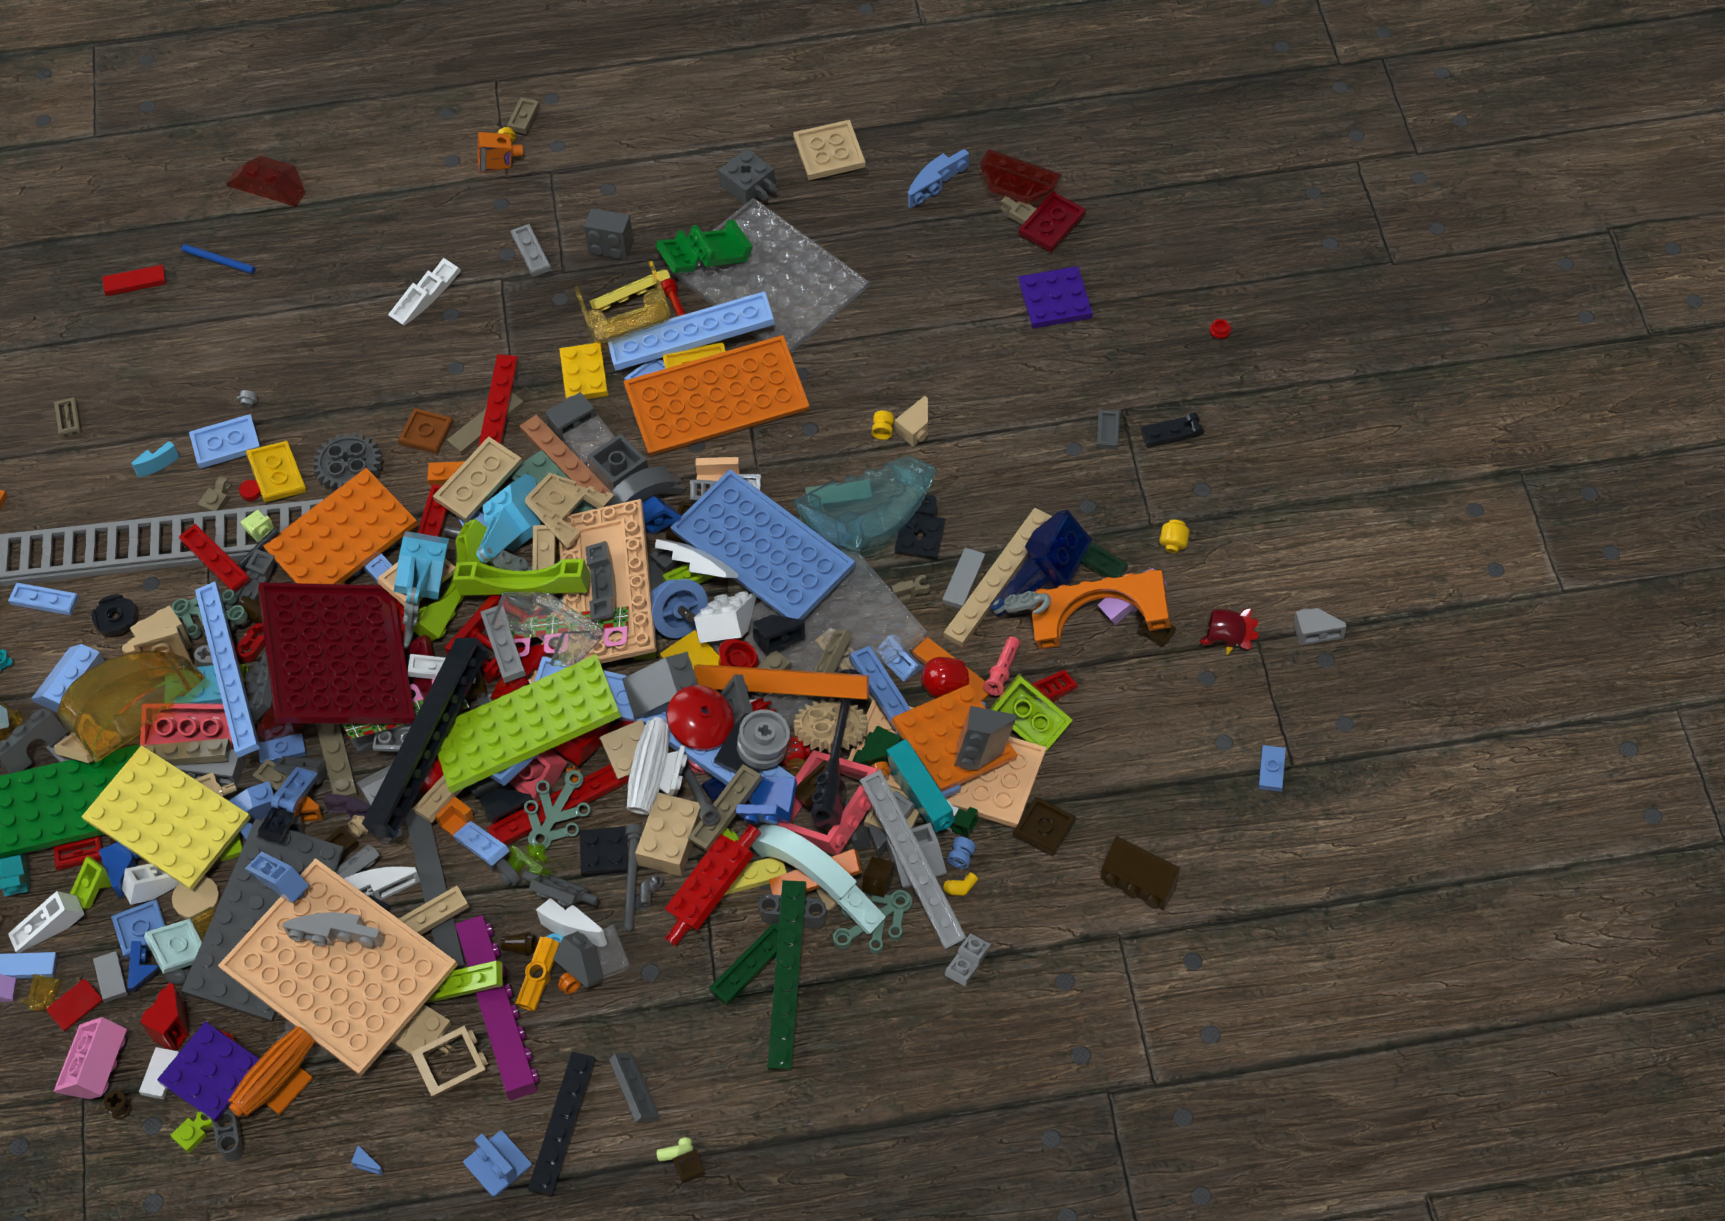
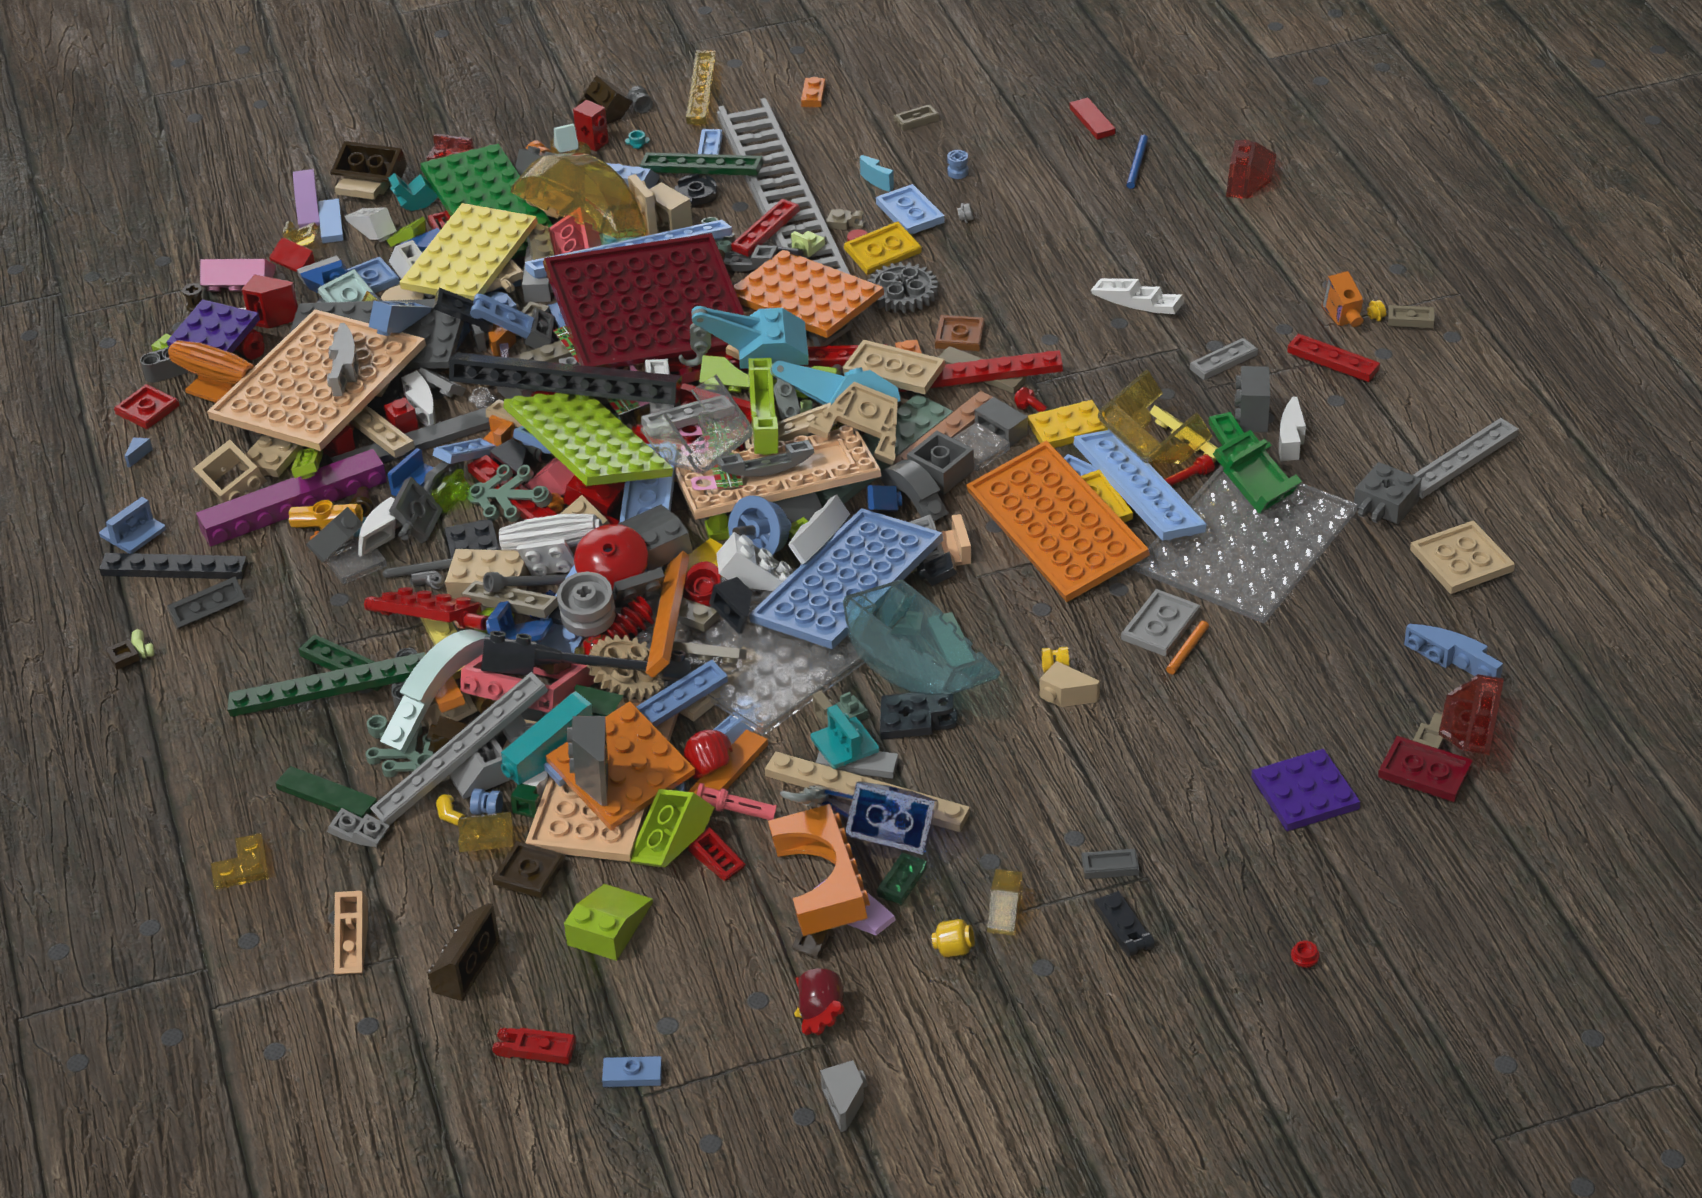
camera: 80 degrees right, 15 degrees down
(79, 603) = (702, 163): none -> dark green plate
(169, 392) = (957, 164): none -> medium blue wheel
(289, 1156) = (146, 406): none -> red tile
(402, 899) = (401, 415): none -> red brick
(497, 897) = (411, 466): none -> blue panel
(544, 394) = (1025, 397): none -> red plate
(559, 176) = (1333, 357): none -> red plate
(631, 263) = (1225, 427): none -> green plate
(648, 223) = (1291, 431): none -> white slope
(710, 120) = (1465, 455): none -> light grey plate
(849, 351) = (1160, 622): none -> light grey tile
(883, 339) = (1187, 647): none -> orange bar
(902, 573) = (852, 706): none -> sand green tile
(916, 986) = (324, 792): none -> dark green tile
(951, 579) = (843, 739): none -> teal bracket
(993, 1051) = (246, 868): none -> clear yellow plate
(1001, 855) = (485, 832): none -> clear yellow bracket
(1095, 965) = (350, 932): none -> light nougat slope
(1111, 770) = (606, 921): none -> lime slope
(1142, 498) = (1005, 902): none -> clear yellow slope
(1239, 831) = (535, 1045): none -> red hinge

